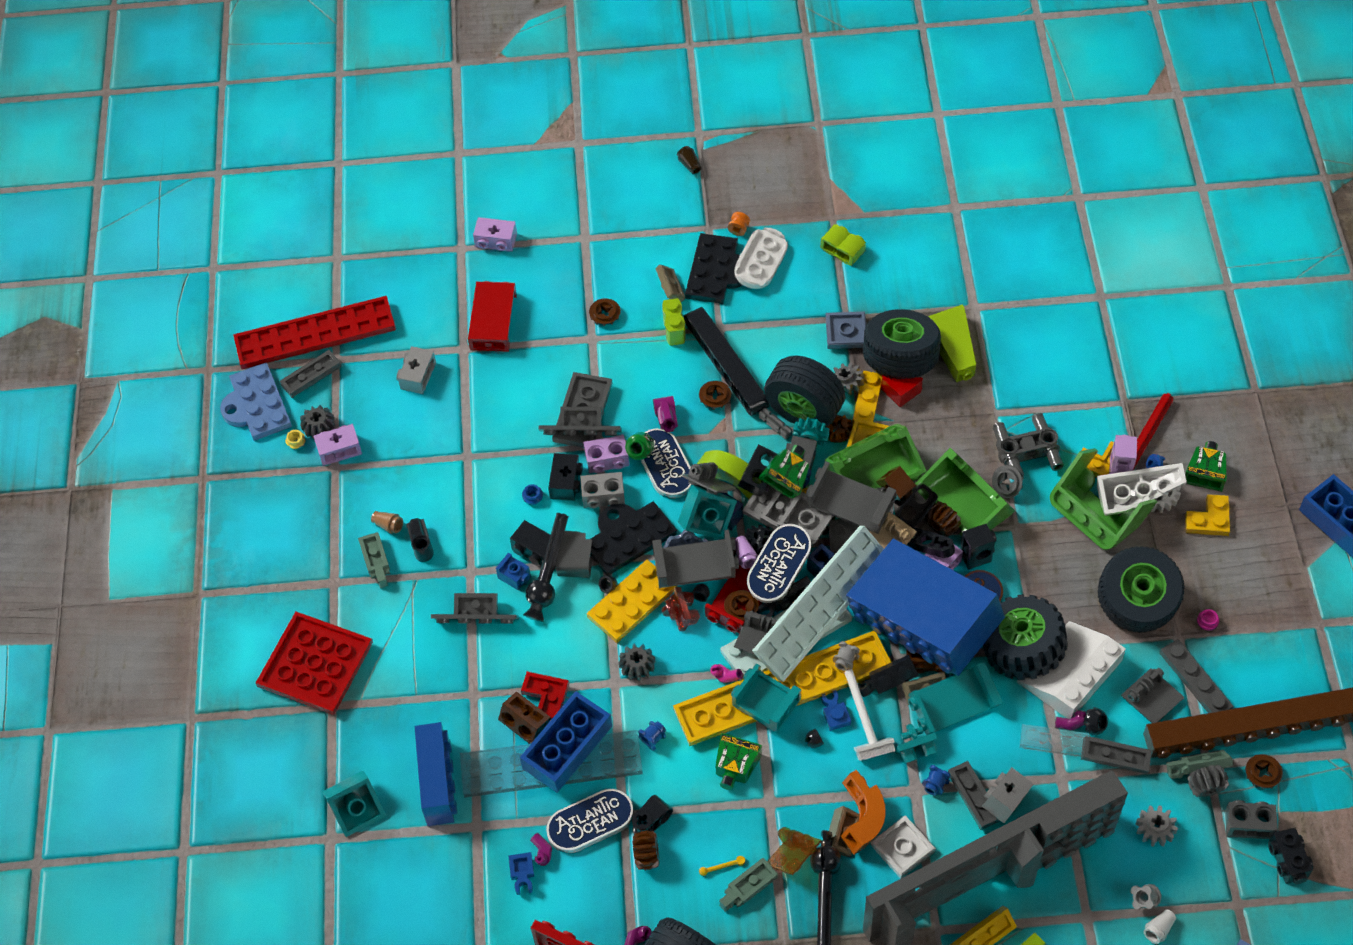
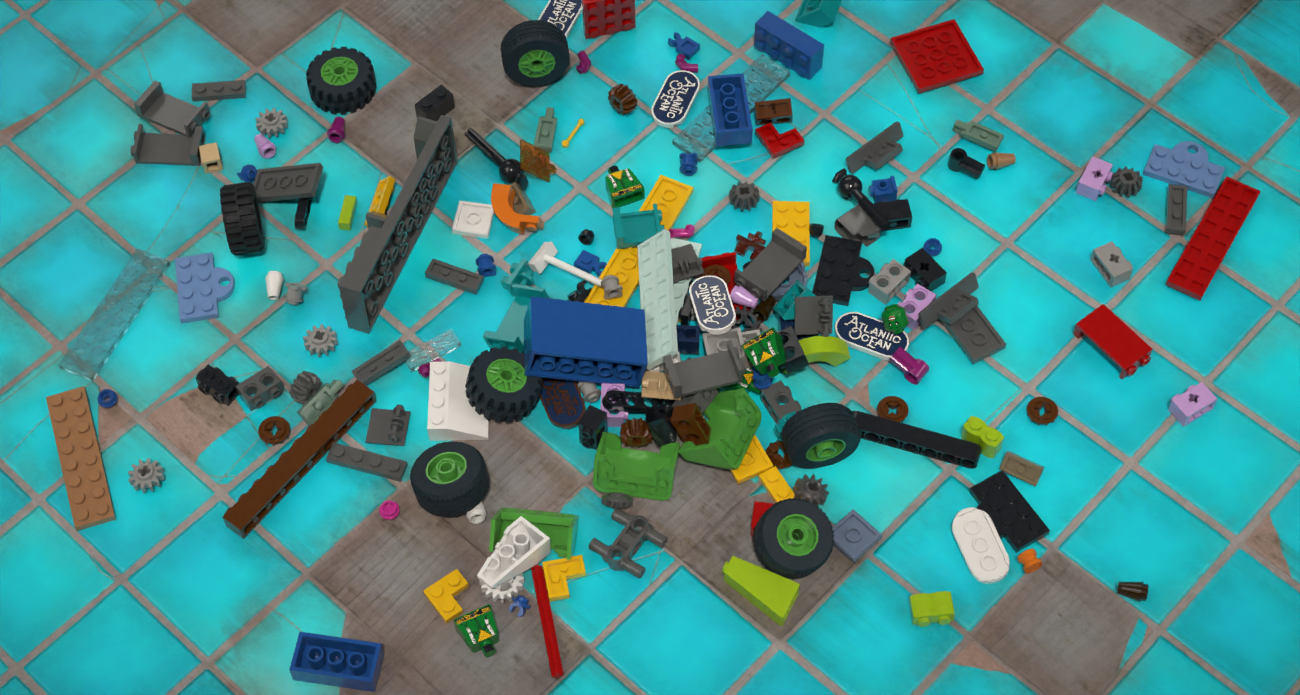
camera: 135 degrees right, 0 degrees up
(295, 435) = (1127, 161): light yellow plate -> none
(652, 813) = (641, 121): black piece -> none
(1007, 795) = (425, 275): light grey brick -> none
(1095, 721) = (411, 376): black plate -> none
(1123, 454) = (542, 566): lavender brick -> none

